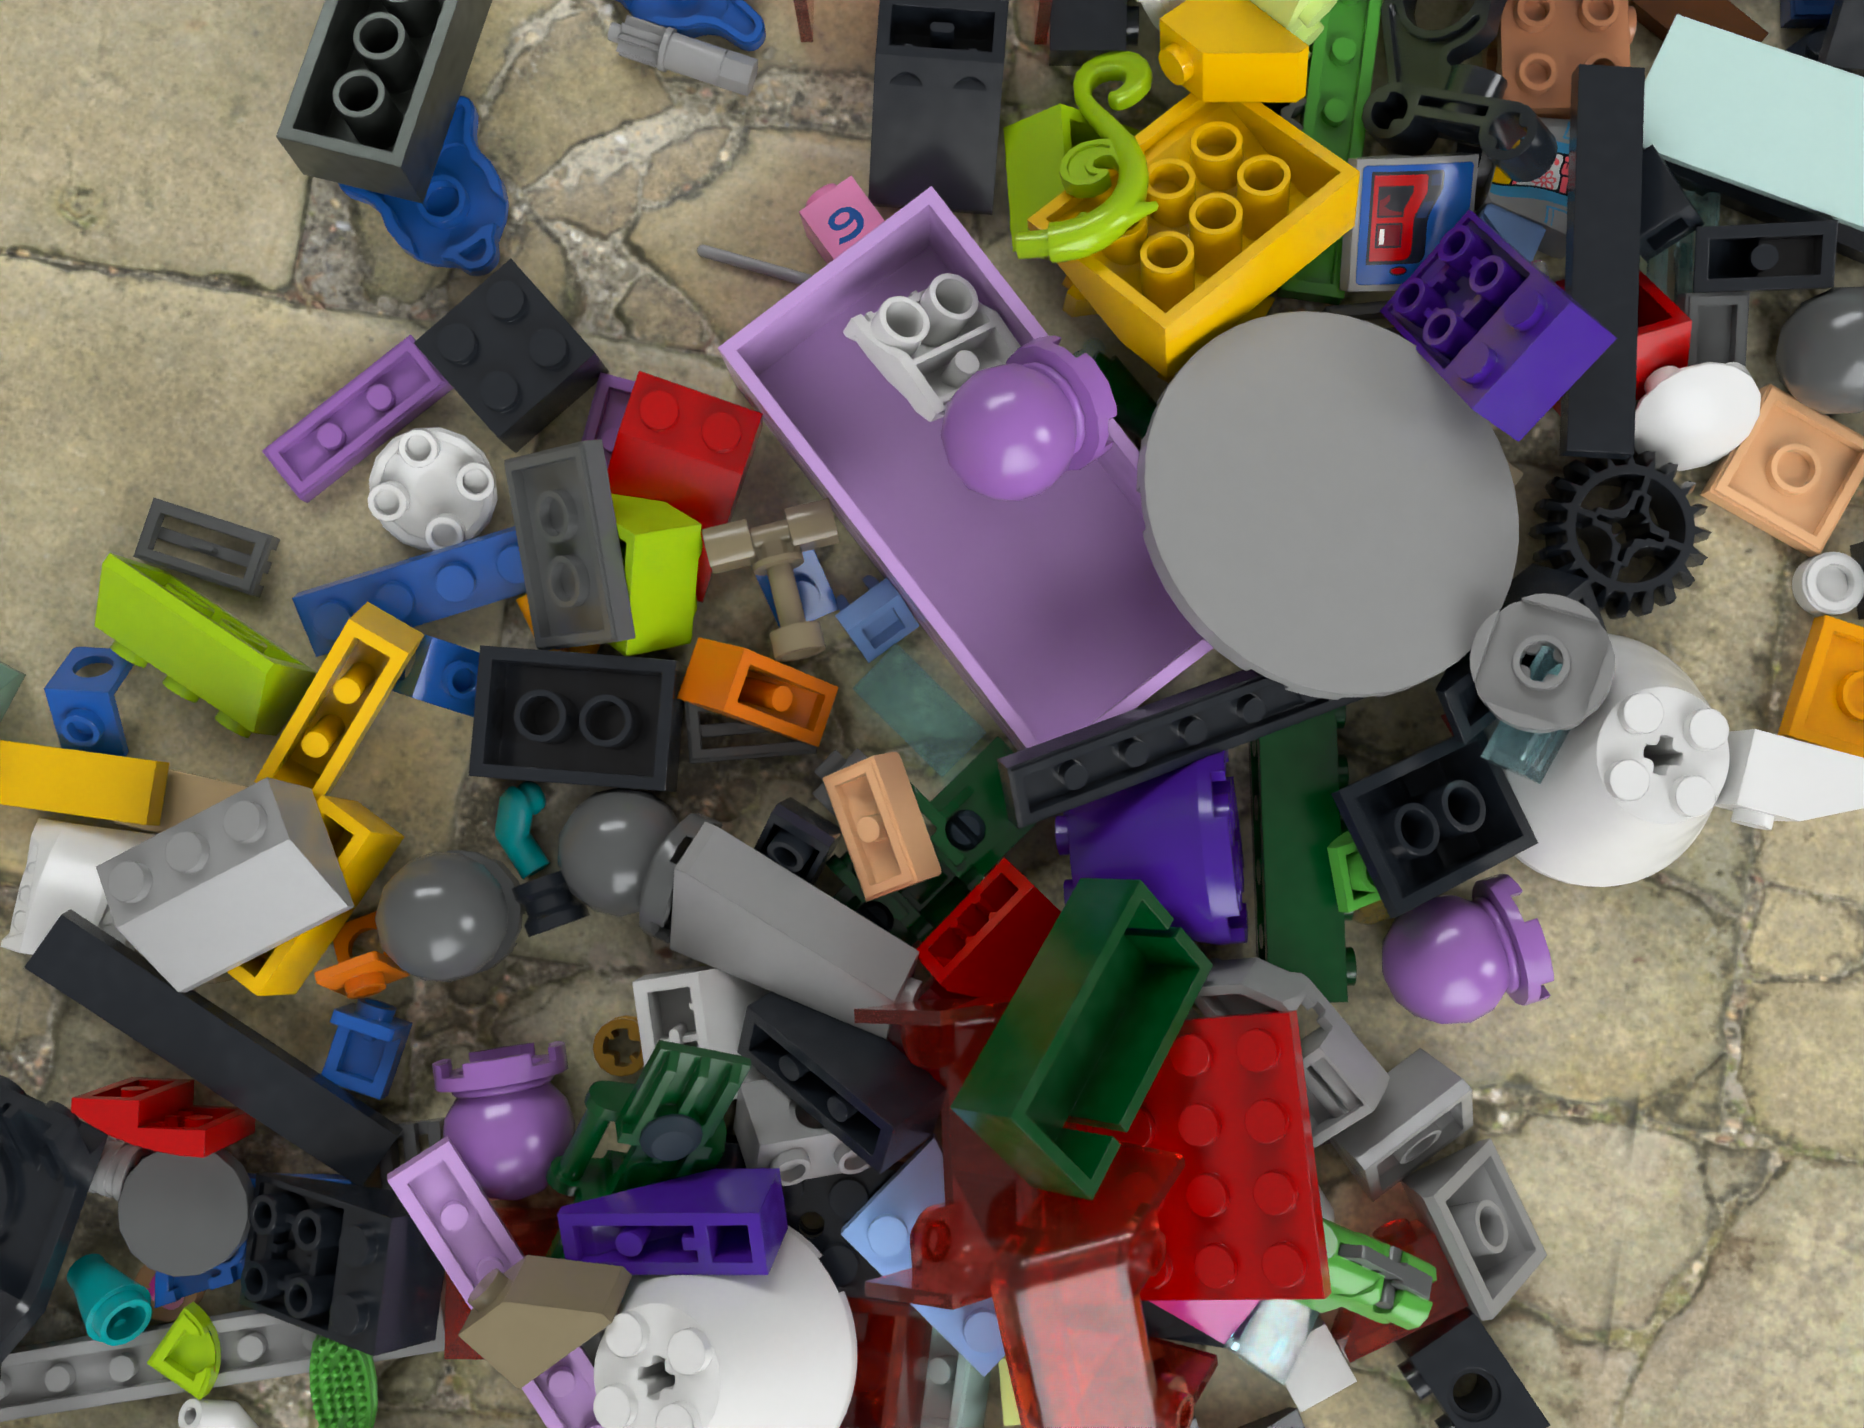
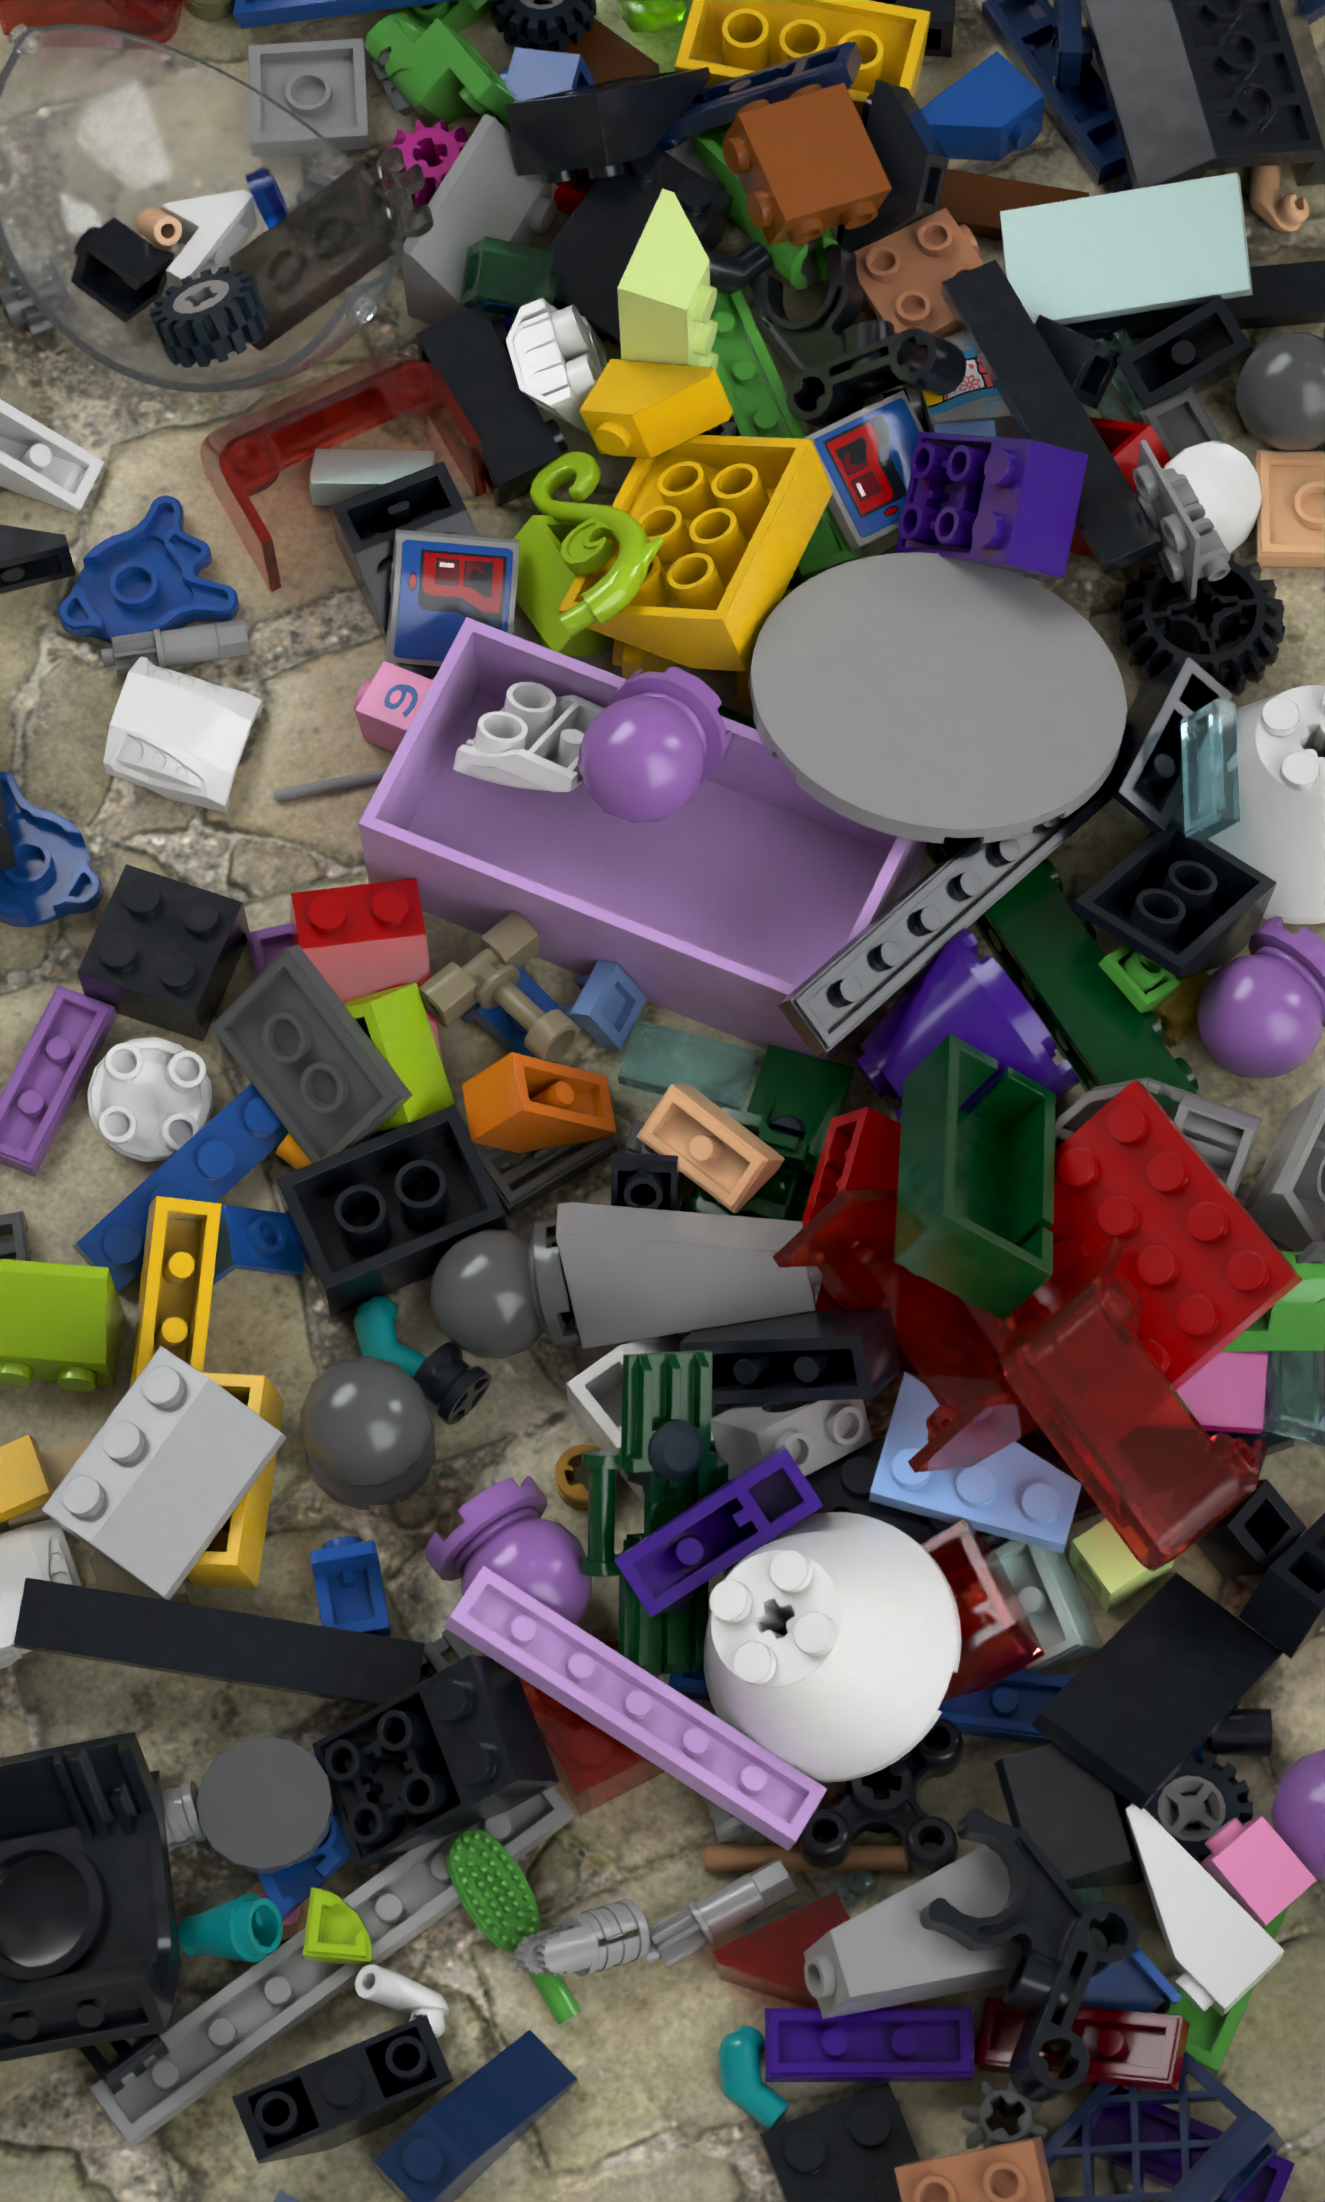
camera: 30 degrees left, 20 degrees down
(162, 1116) = (178, 1734): red slope -> none
(360, 975) = (309, 1514): orange bracket -> none
(540, 1312) = (644, 1648): dark tan slope -> none
(638, 142) = (179, 735): none -> white slope
(946, 138) = (442, 582): none -> slope
(1522, 629) = (1200, 750): light grey plate -> none
(1660, 413) = (1188, 540): none -> light grey hinge

